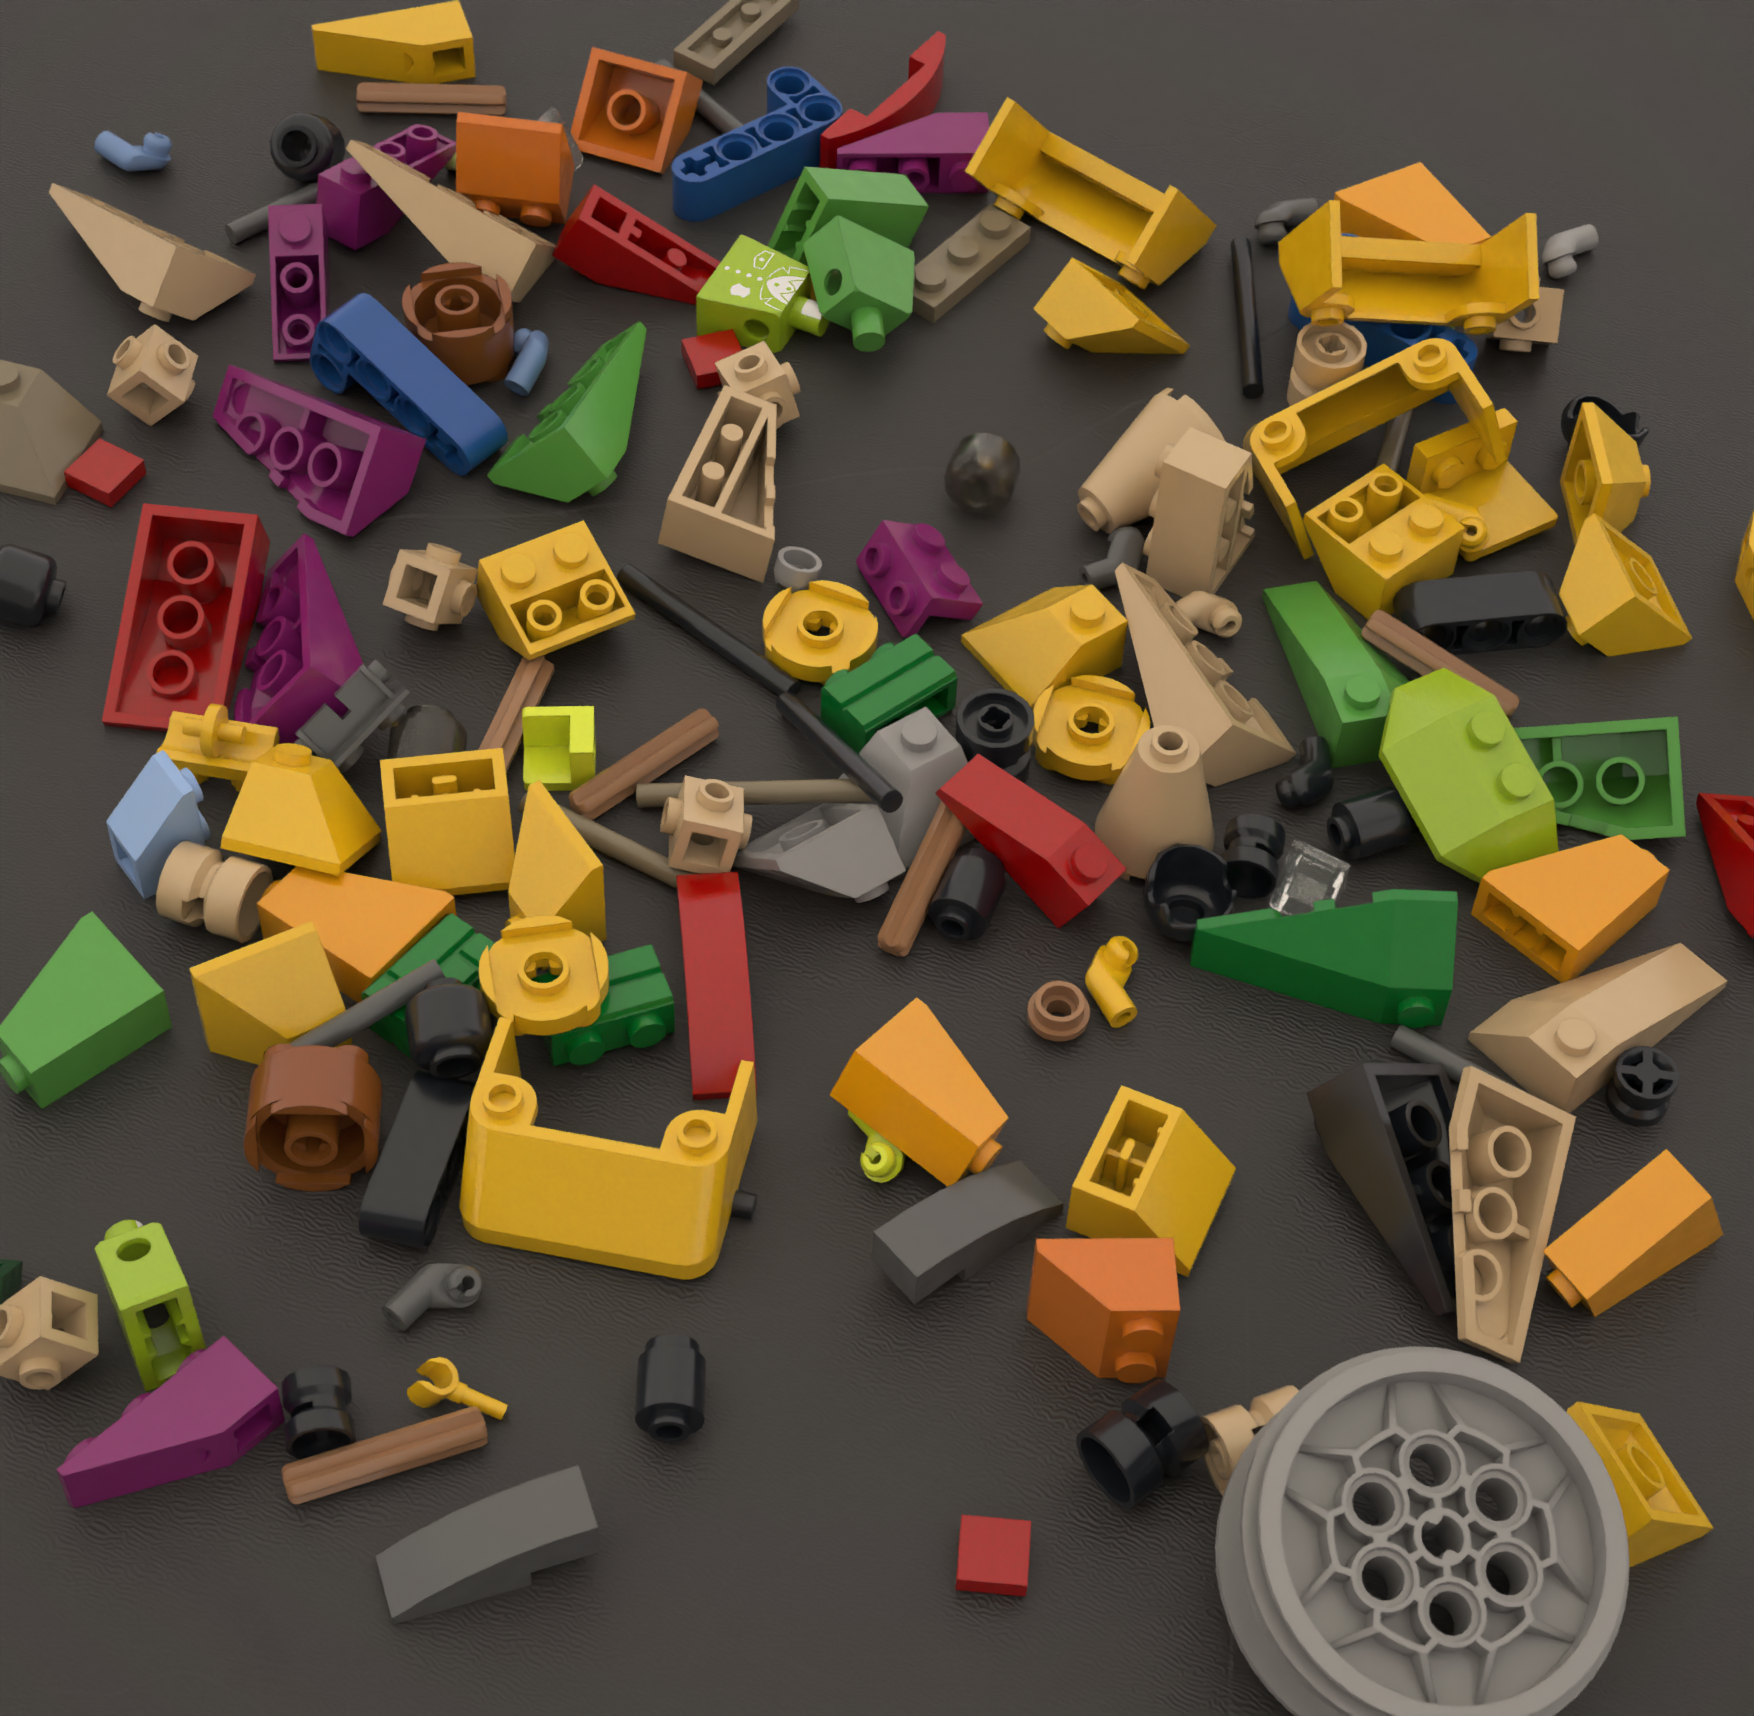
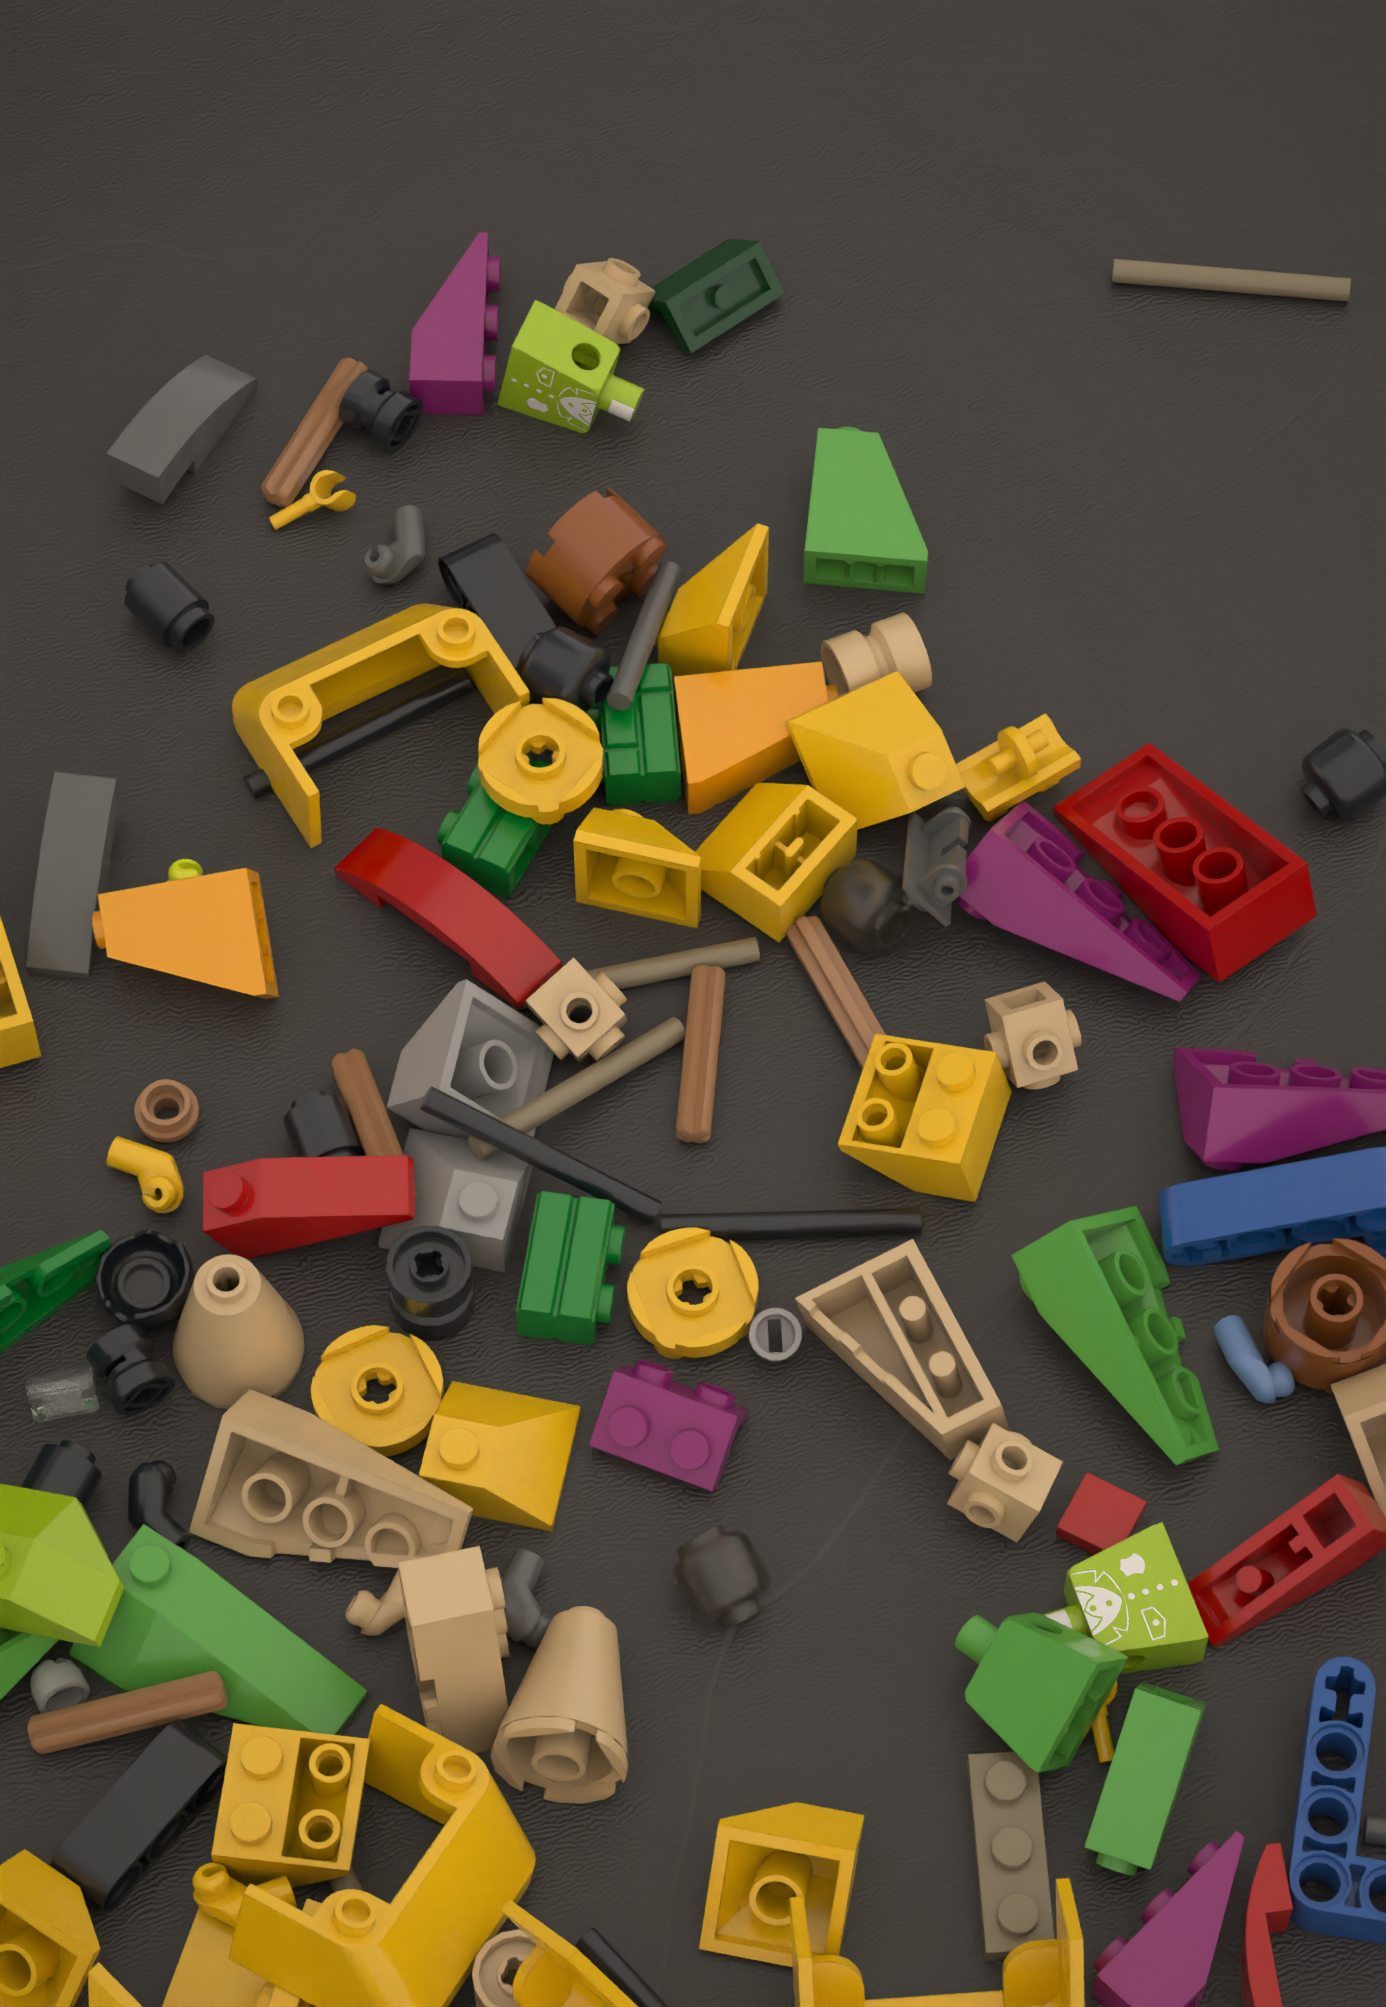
camera: 140 degrees right, 10 degrees up
(154, 819) = (966, 671): light blue slope -> none
(559, 746) = (771, 1005): neon yellow panel -> none

